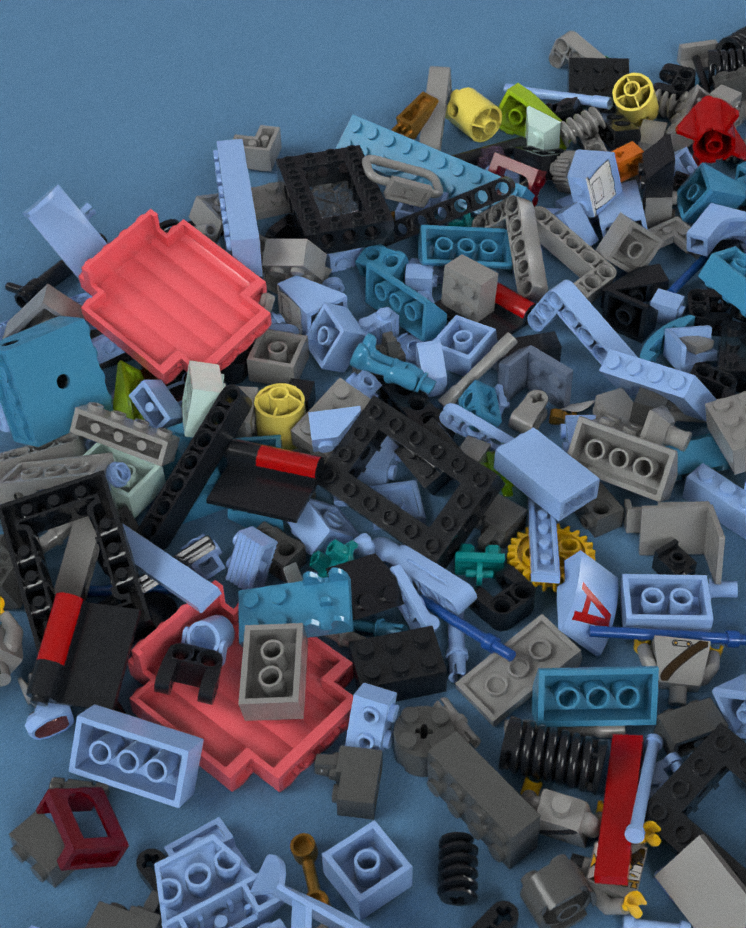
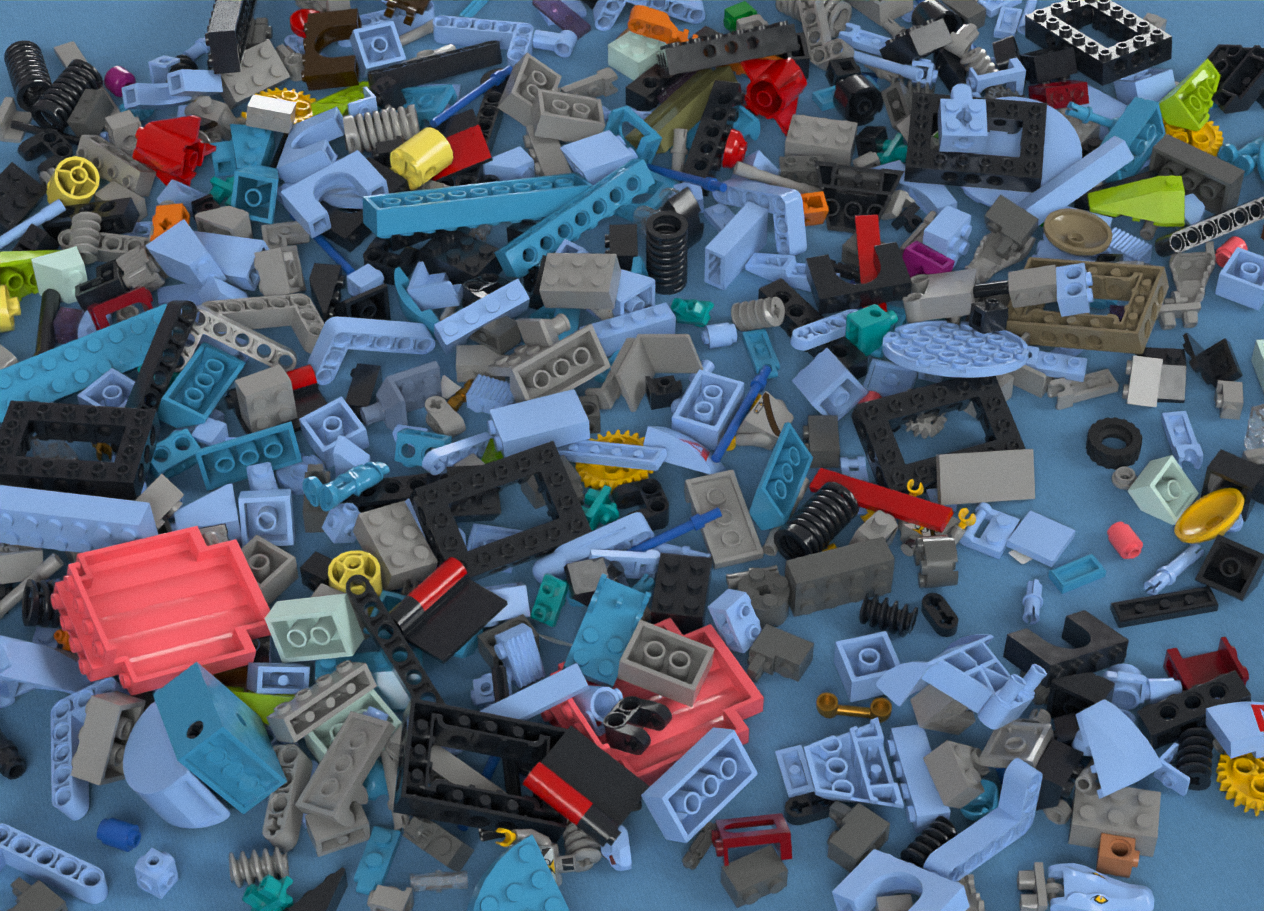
camera: 70 degrees left, 0 degrees up
(331, 426) = (421, 539): light blue slope -> none
(365, 546) = (537, 576): light blue animal -> none
(402, 189) = (107, 392): light grey bar -> none
(498, 351) = (374, 404): light grey piece -> none
(635, 832) = (918, 490): light blue bar -> none
(657, 169) = (221, 200): black slope -> none
(697, 344) = (431, 276): light grey tile -> none

